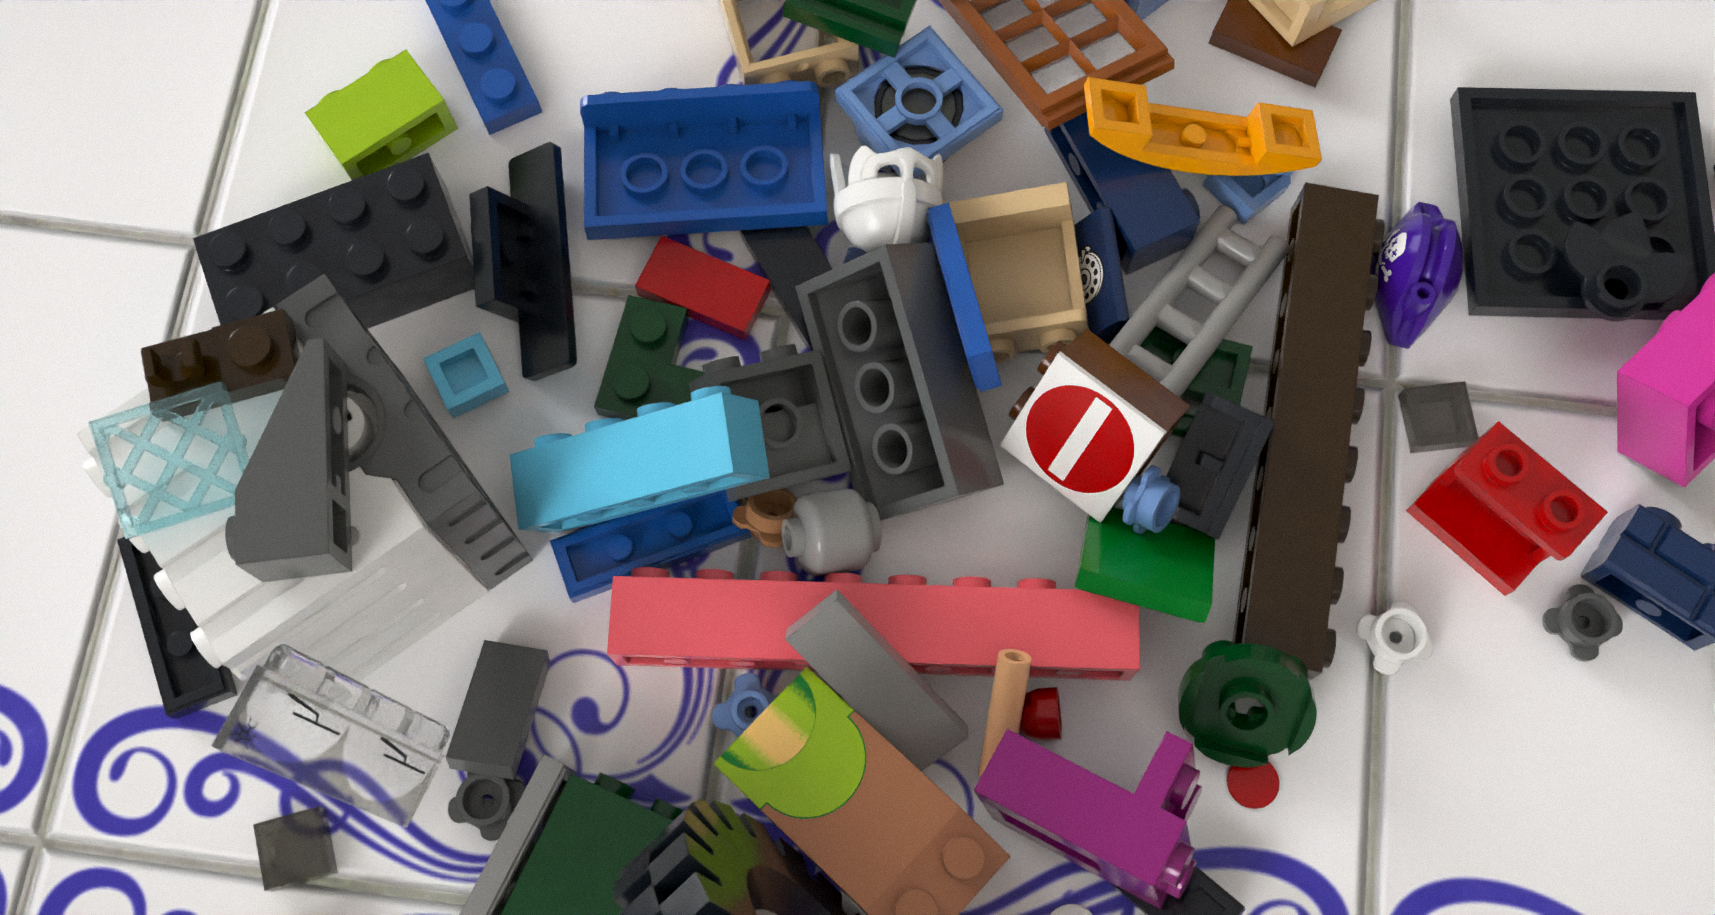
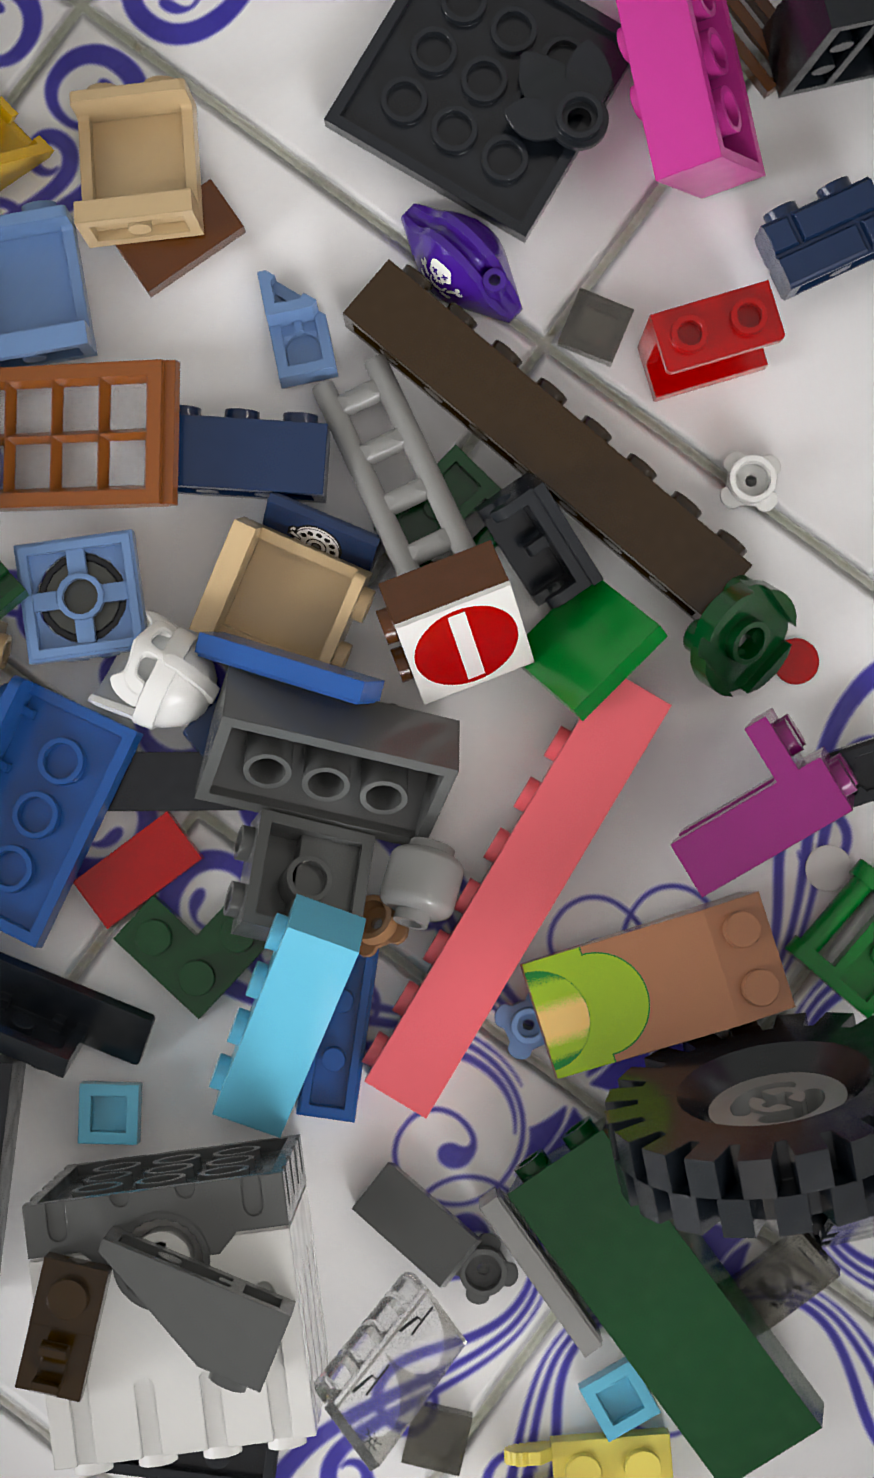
camera: 55 degrees left, 15 degrees up
(117, 478) = (119, 1453): clear light blue window -> none
(876, 681) = (567, 917): light grey tile -> none
(1006, 700) = (641, 827): light nougat piece -> none
(1042, 715) = (656, 797): red hinge -> none
(1150, 501) = (545, 616): medium blue plate -> none
(1200, 141) = (253, 378): light orange slope -> none
(1601, 619) = (829, 311): dark grey plate -> none

